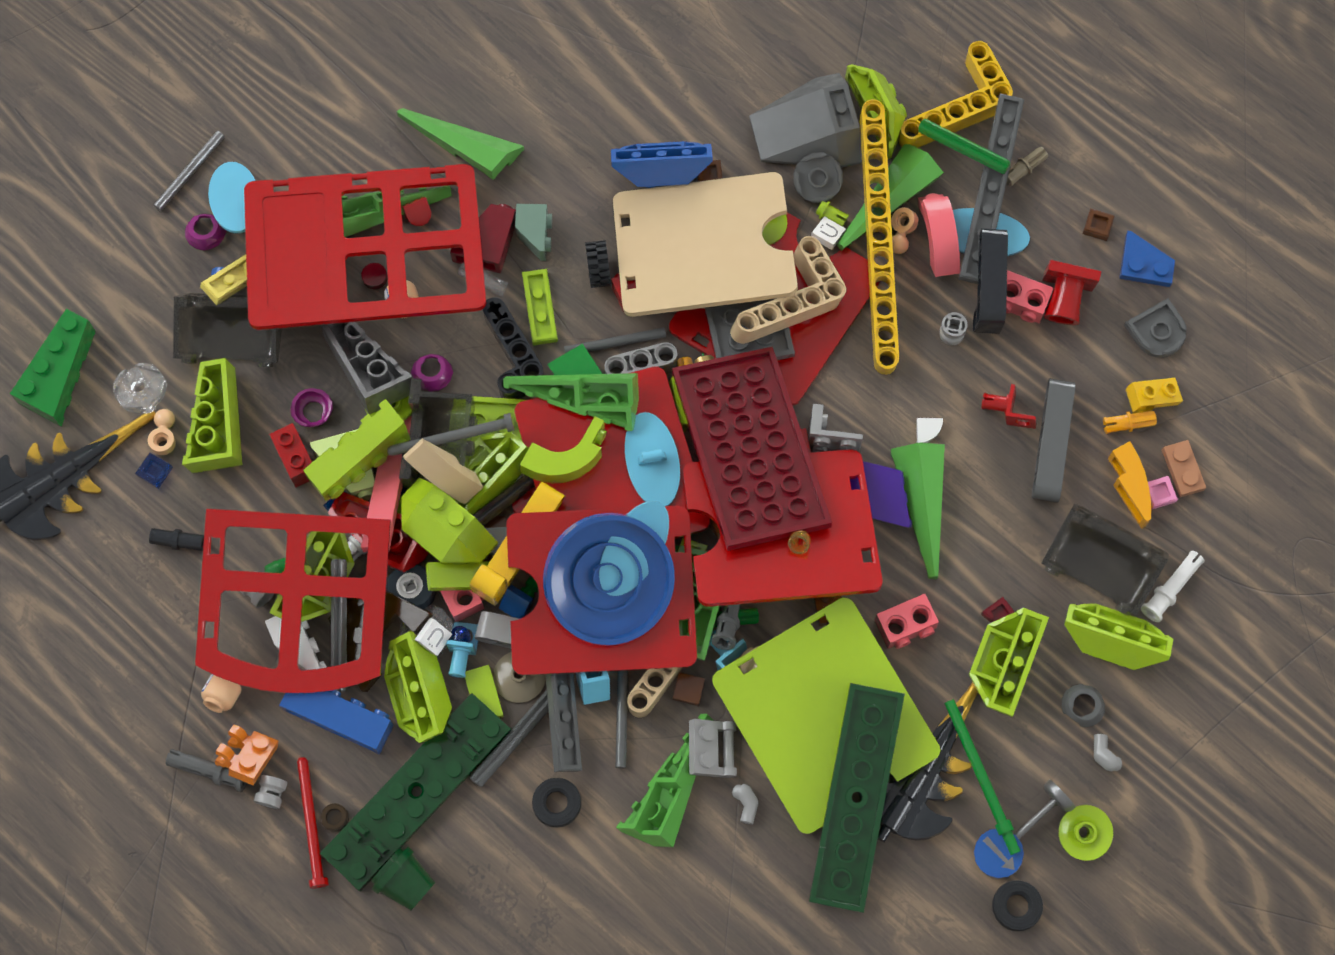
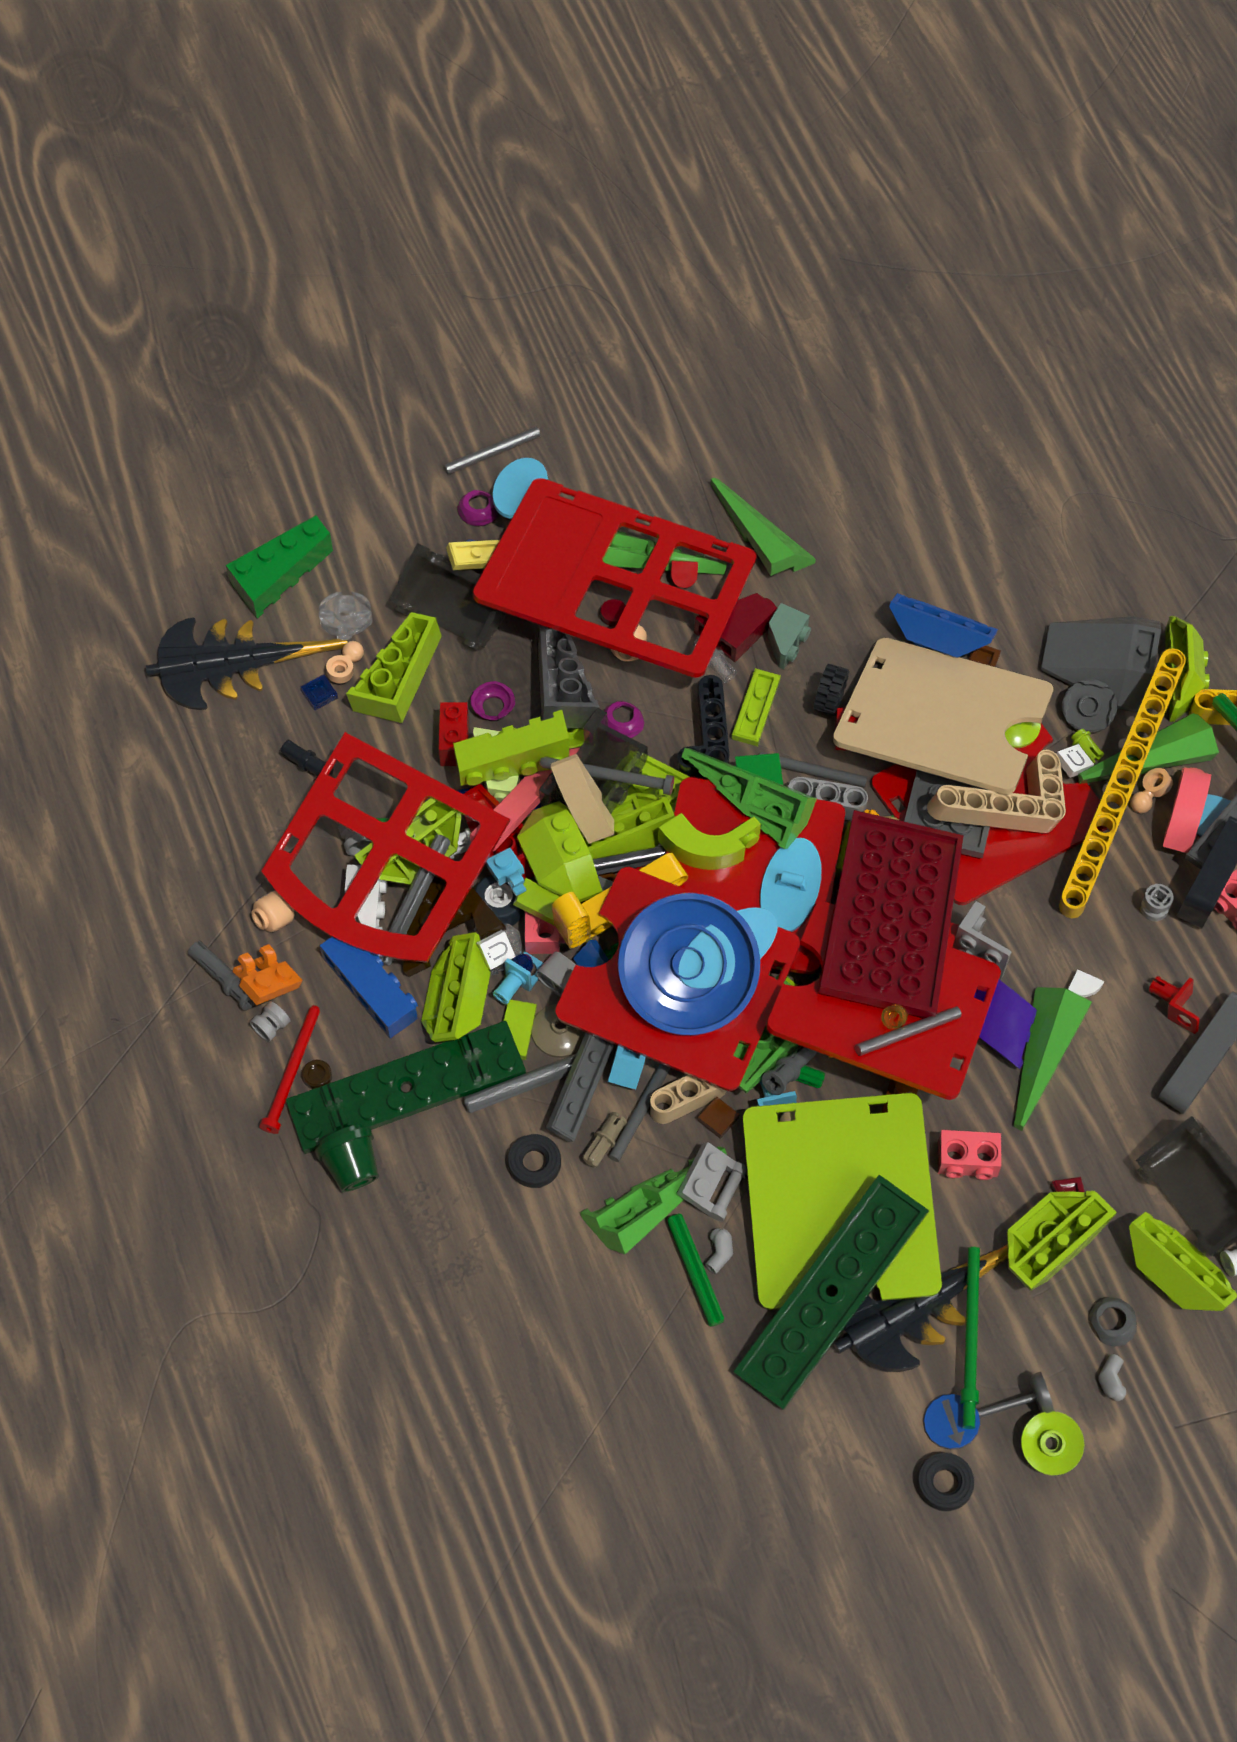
camera: 25 degrees right, 10 degrees down
(409, 562) = (507, 869): none -> medium azure plate
(605, 756) = (604, 1140): none -> dark tan axle
(735, 829) = (695, 1270): none -> green axle
(815, 549) = (907, 1031): none -> flat silver bar

